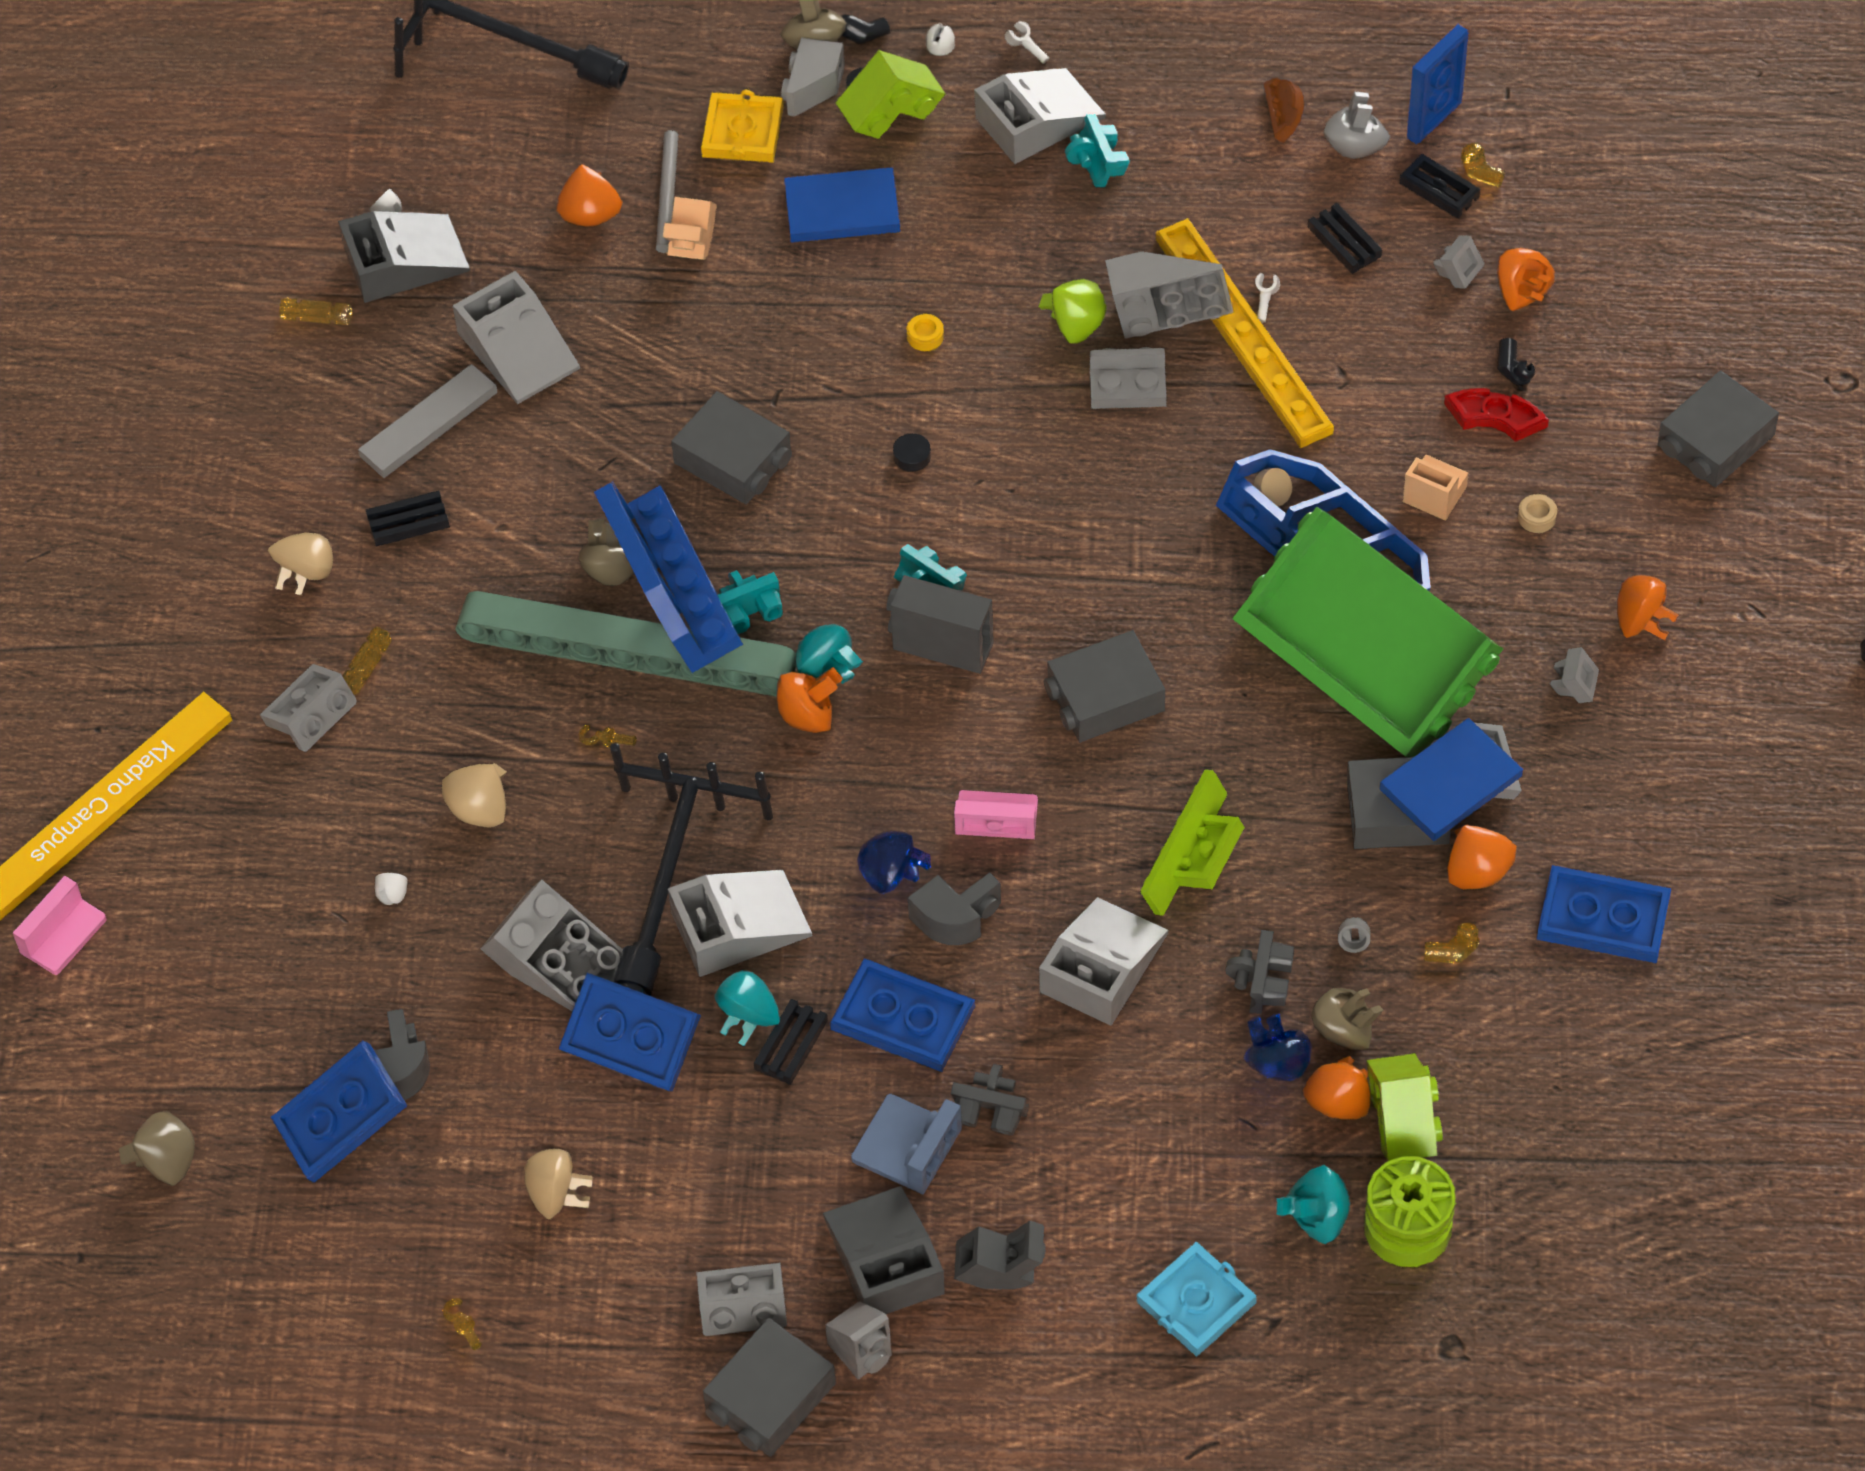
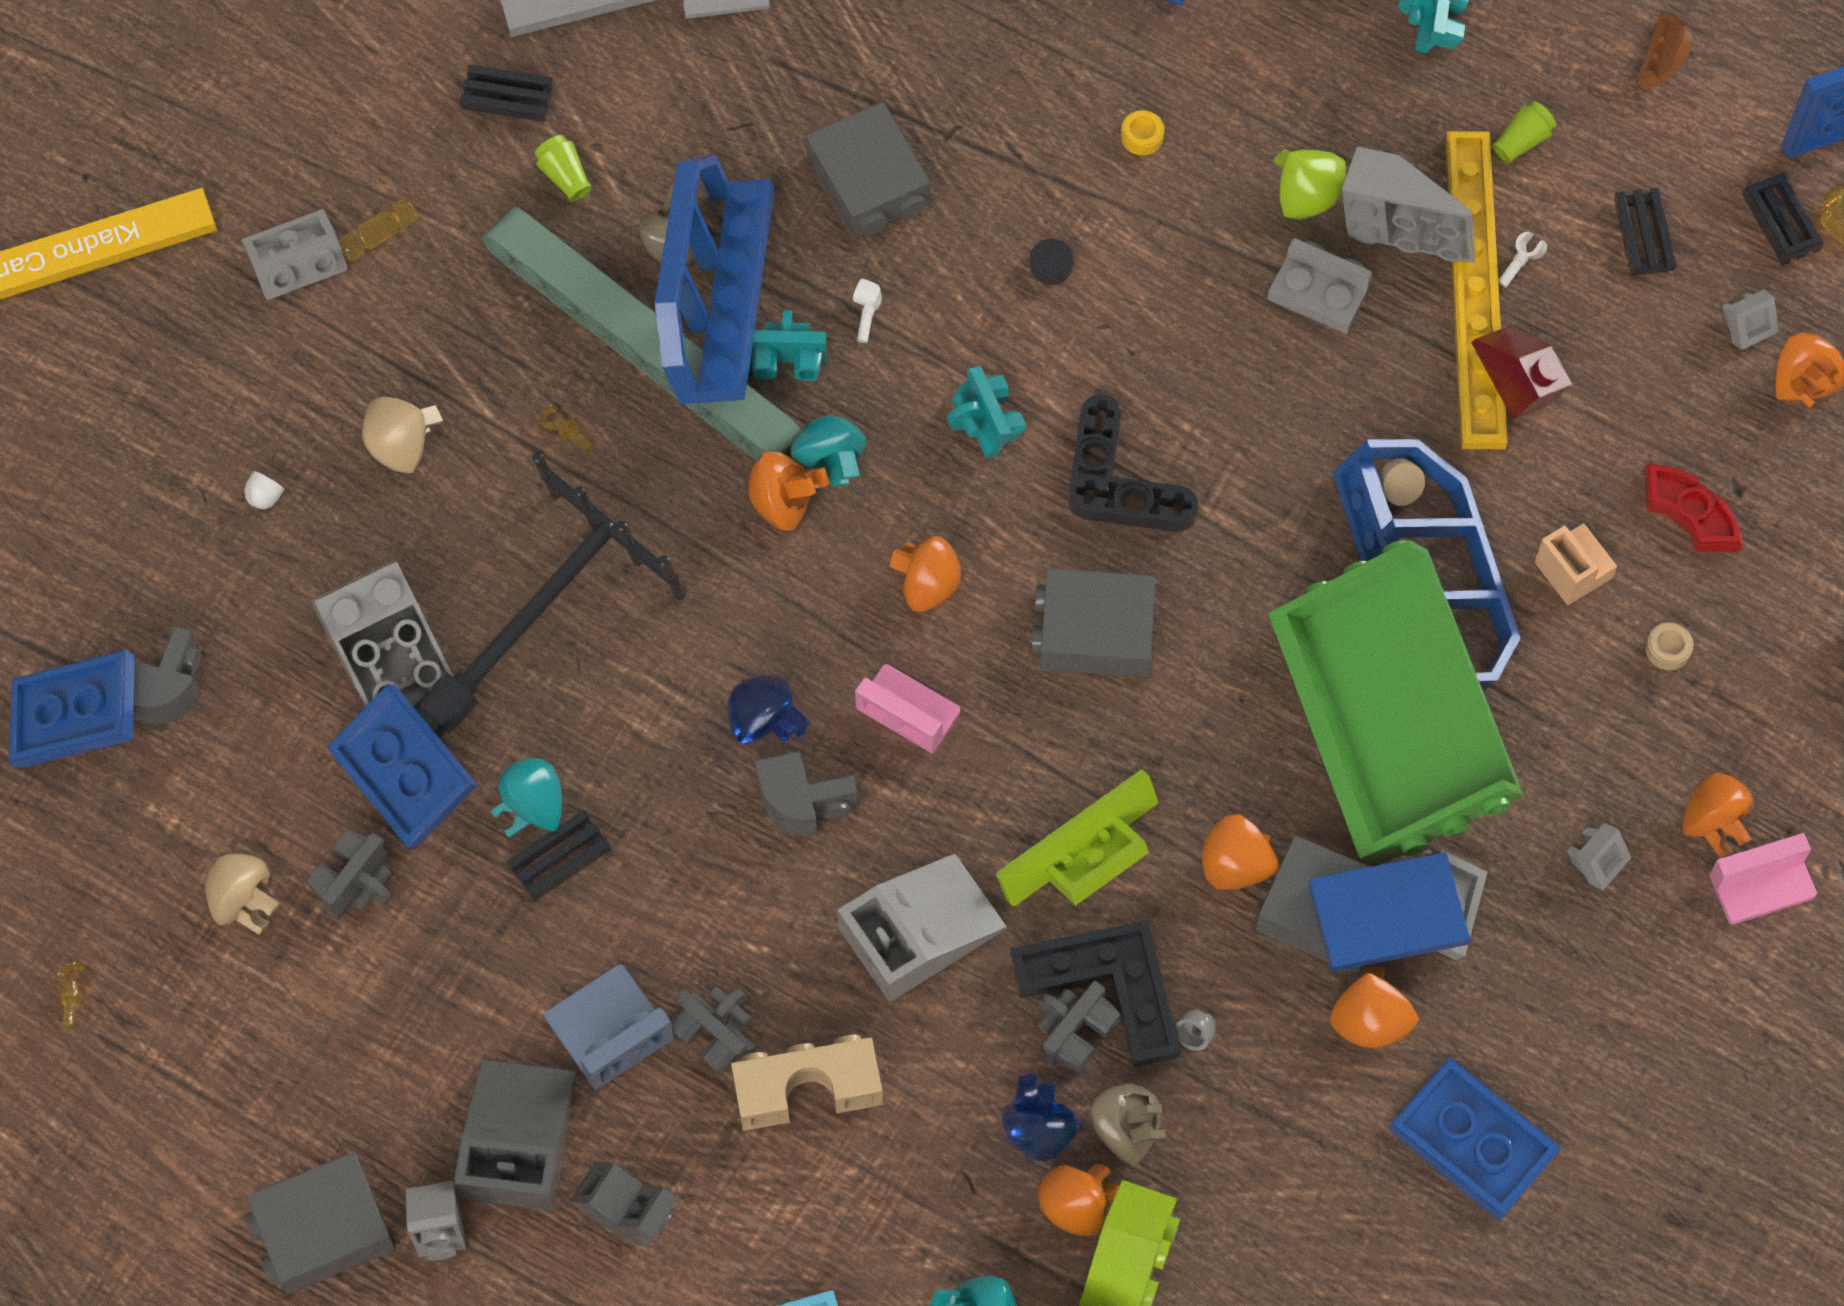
camera: 25 degrees right, 10 degrees up
(304, 554) = (374, 89): tan piece -> none
(488, 550) = (562, 165): none -> lime cone
(638, 1111) = (358, 880): none -> dark grey hips
(736, 917) = (578, 694): light grey slope -> none
(741, 1298) = (349, 1111): light grey bracket -> none
(786, 538) = (870, 297): none -> white hand
(902, 1015) = (687, 882): blue tile -> none
(941, 623) = (962, 472): dark grey brick -> none
(959, 707) = (930, 572): none -> orange piece
(1047, 589) = (1101, 481): none -> black beam
(1107, 1085) = (844, 1068): none -> tan arch
(1215, 204) = (1526, 130): none -> lime cone
(1274, 909) = (1112, 953): none -> black plate
(1312, 796) = (1237, 854): none -> orange piece
(1316, 368) = (1521, 369): none -> dark red slope
(1355, 130) = (1724, 114): light grey piece -> none
(1456, 949) = (1293, 1100): clear yellow arm -> none
(1510, 367) = (1737, 463): black arm -> none
(1703, 638) = (1763, 879): none -> bright pink panel

